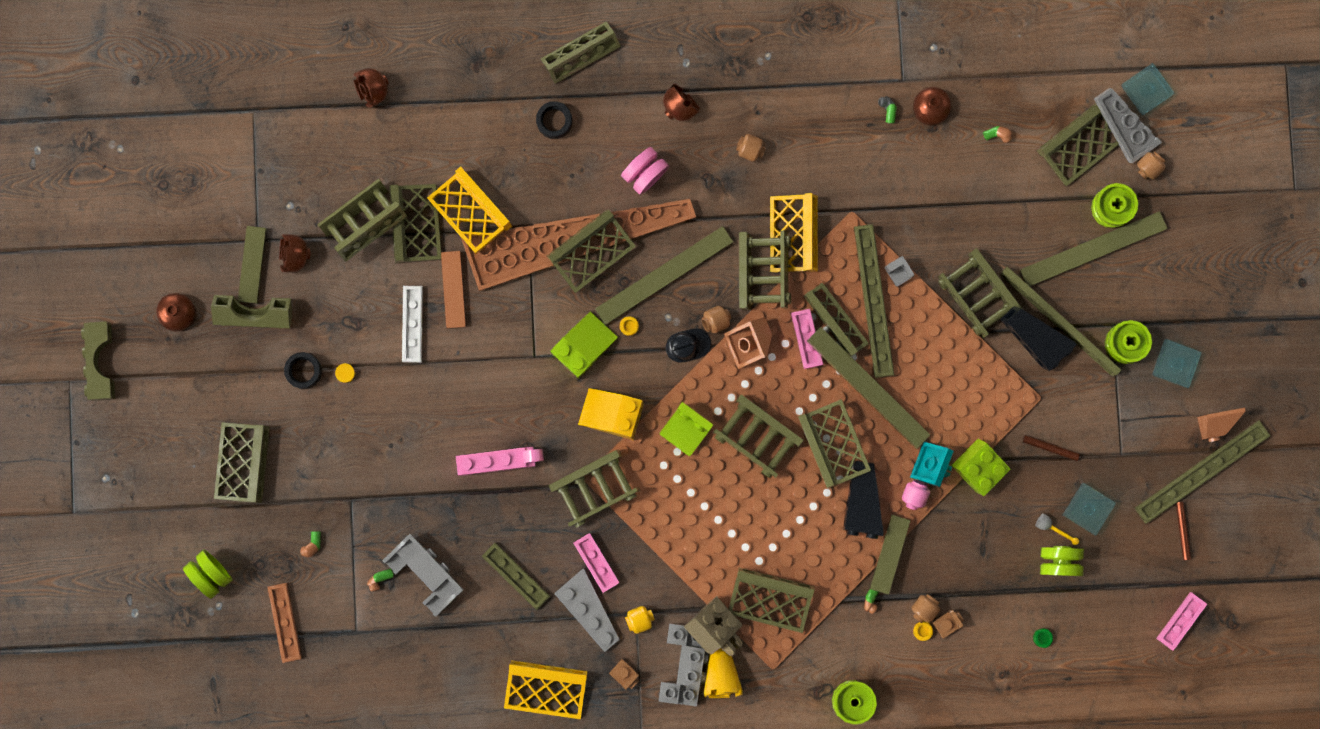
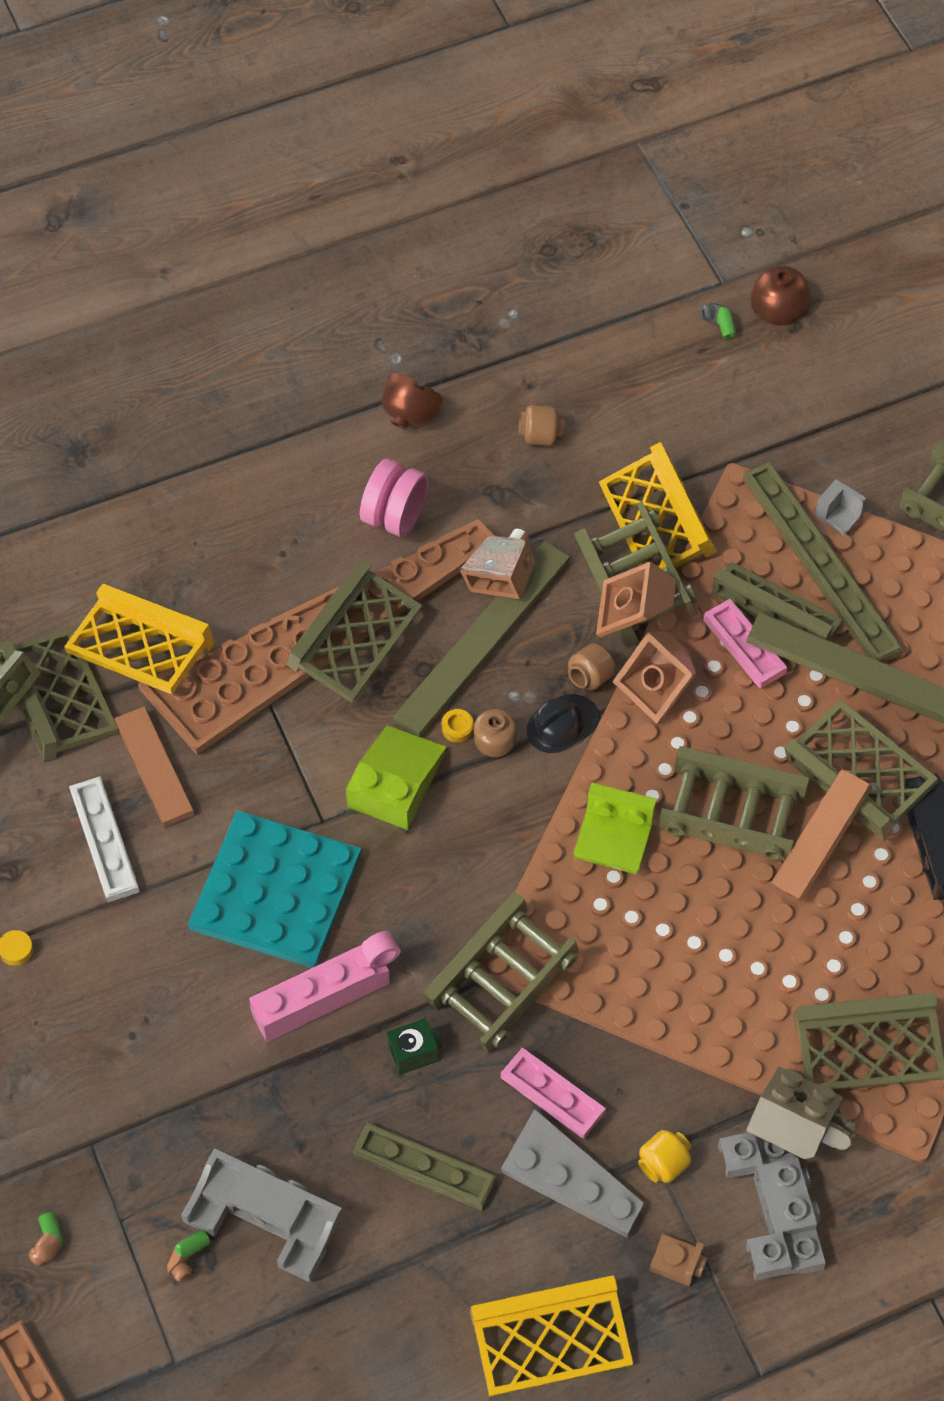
camera: 15 degrees left, 25 degrees down
(494, 389) = (275, 889): none -> teal plate
(534, 510) = (414, 1046): none -> dark green brick
(549, 106) = (222, 466): black tyre -> none
(582, 53) = (233, 389): olive fence -> none
(611, 413) = (483, 853): yellow slope -> none
(645, 349) = (494, 733): none -> medium nougat head
(690, 236) = (500, 566): none -> nougat torso
(722, 676) = (847, 1196): yellow cone -> none
(752, 295) = (634, 597): none -> nougat slope
(795, 476) = (821, 835): none -> nougat tile
(998, 131) = (892, 297): arm -> none

